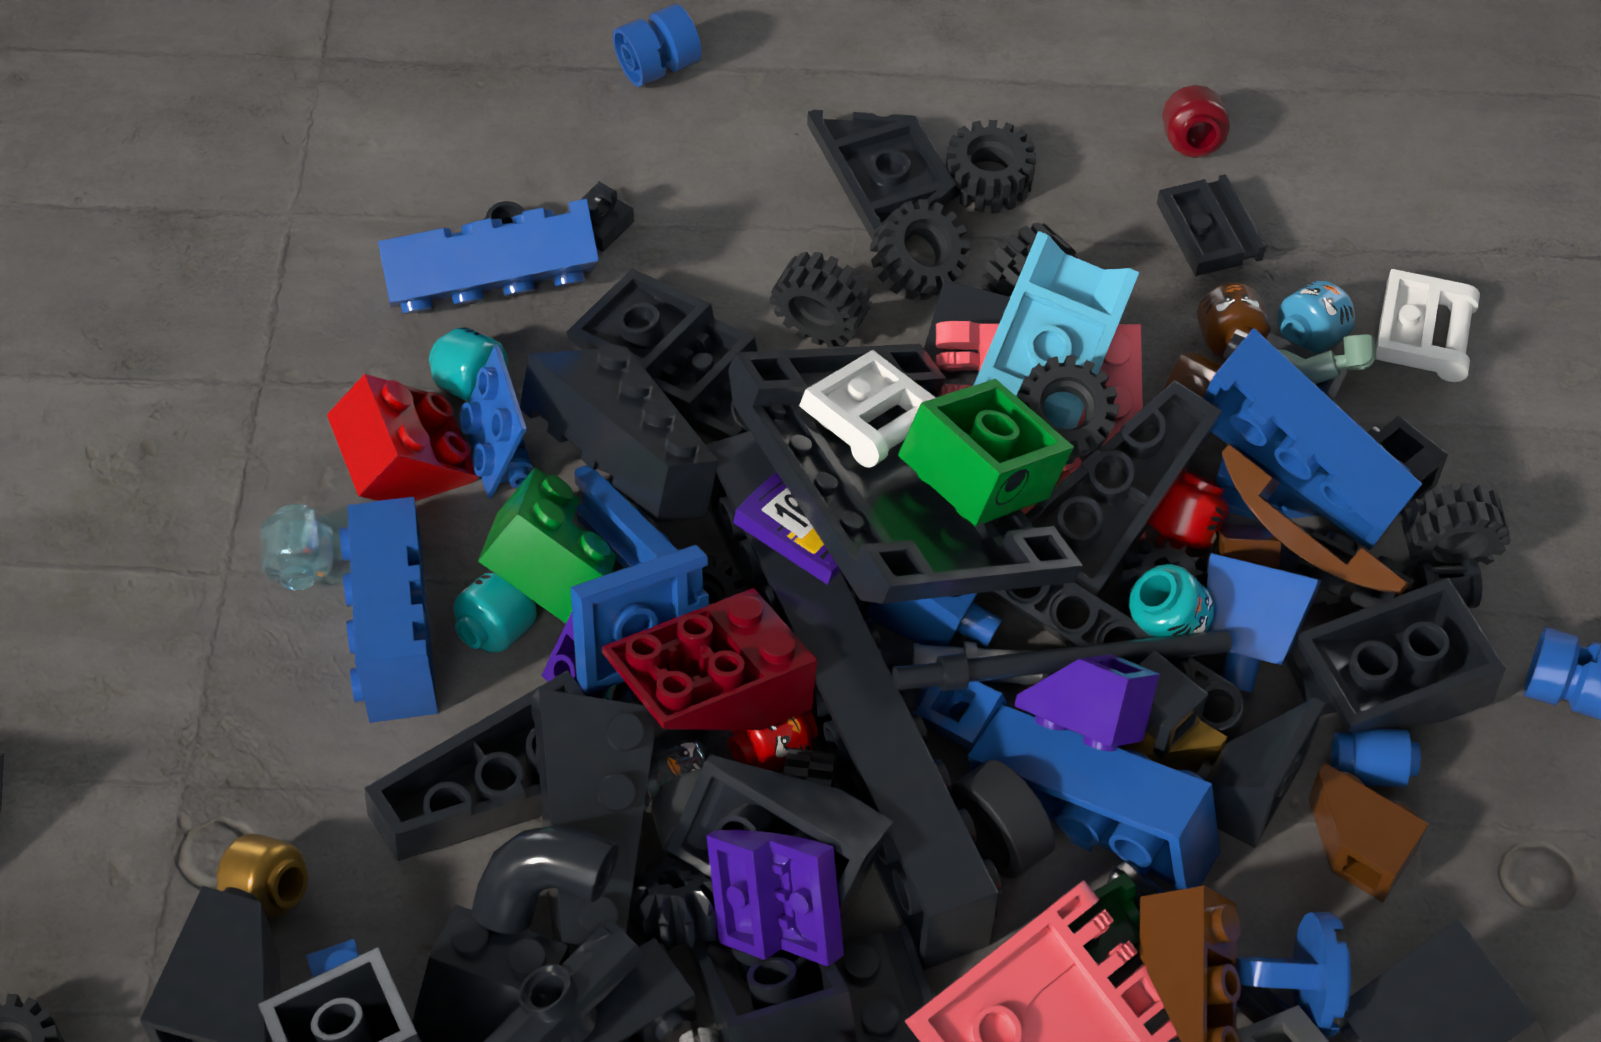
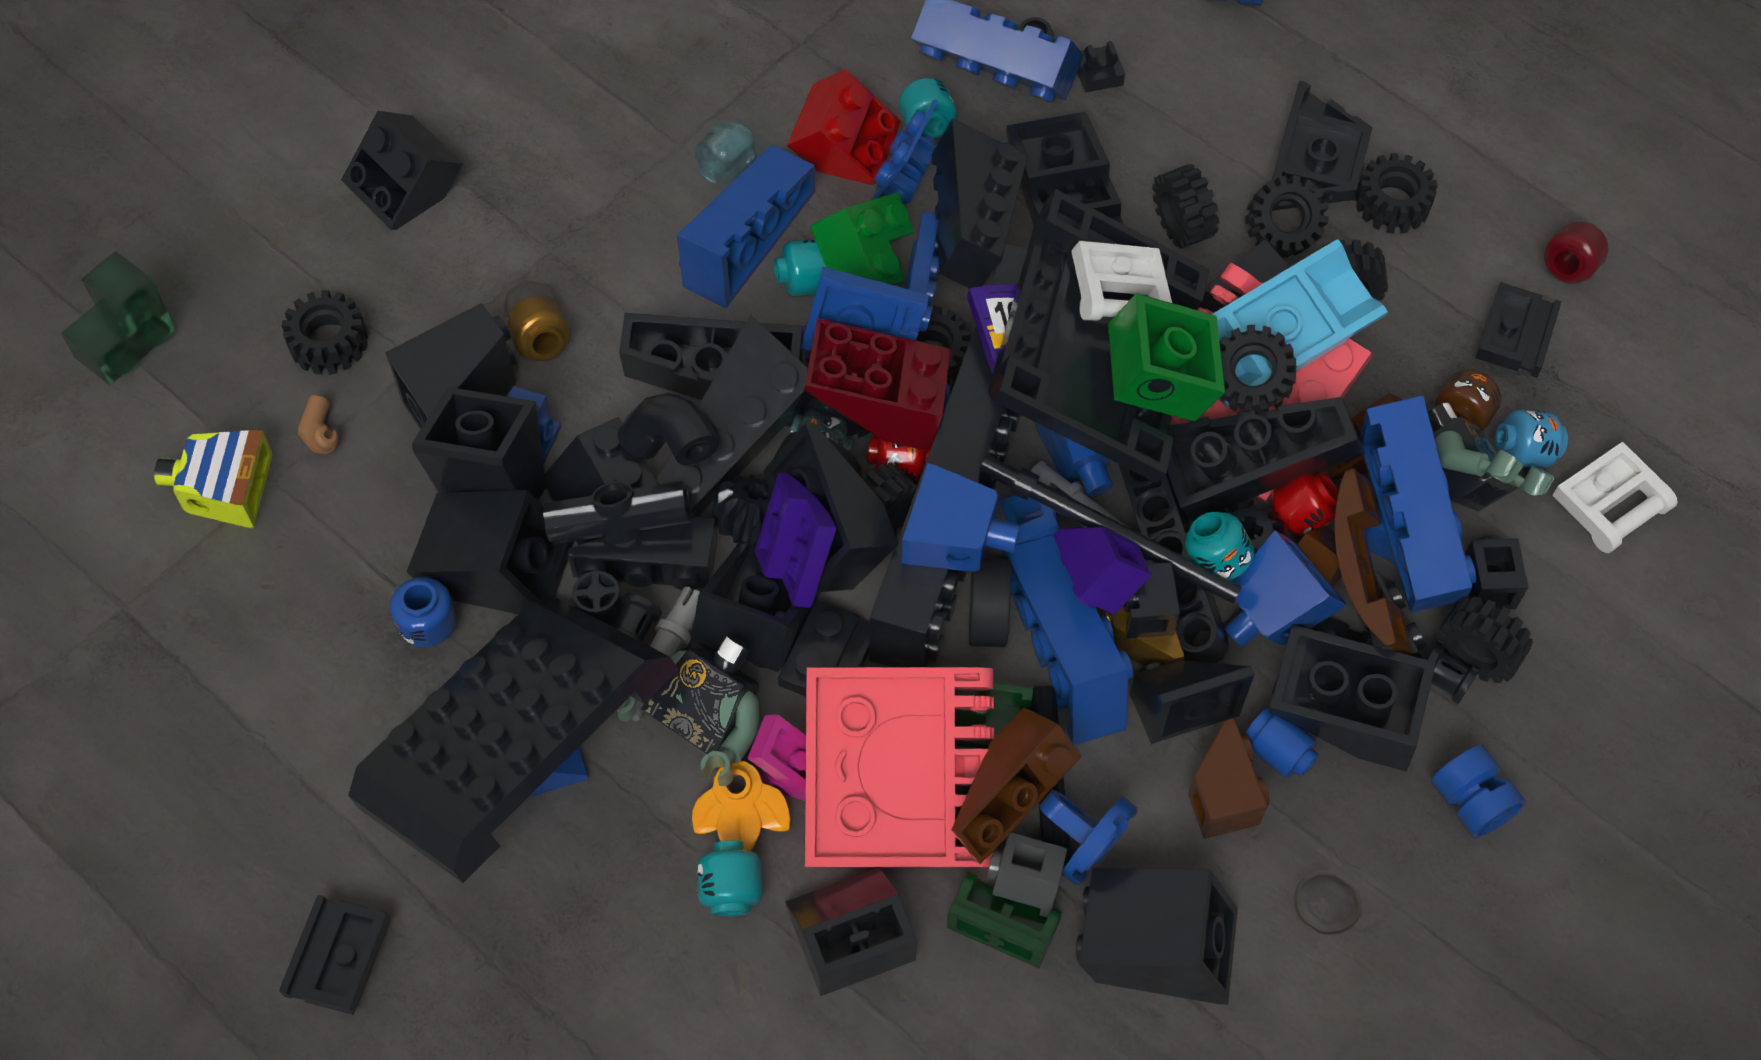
camera: 40 degrees right, 5 degrees up
(932, 757) = (954, 523): none -> blue torso

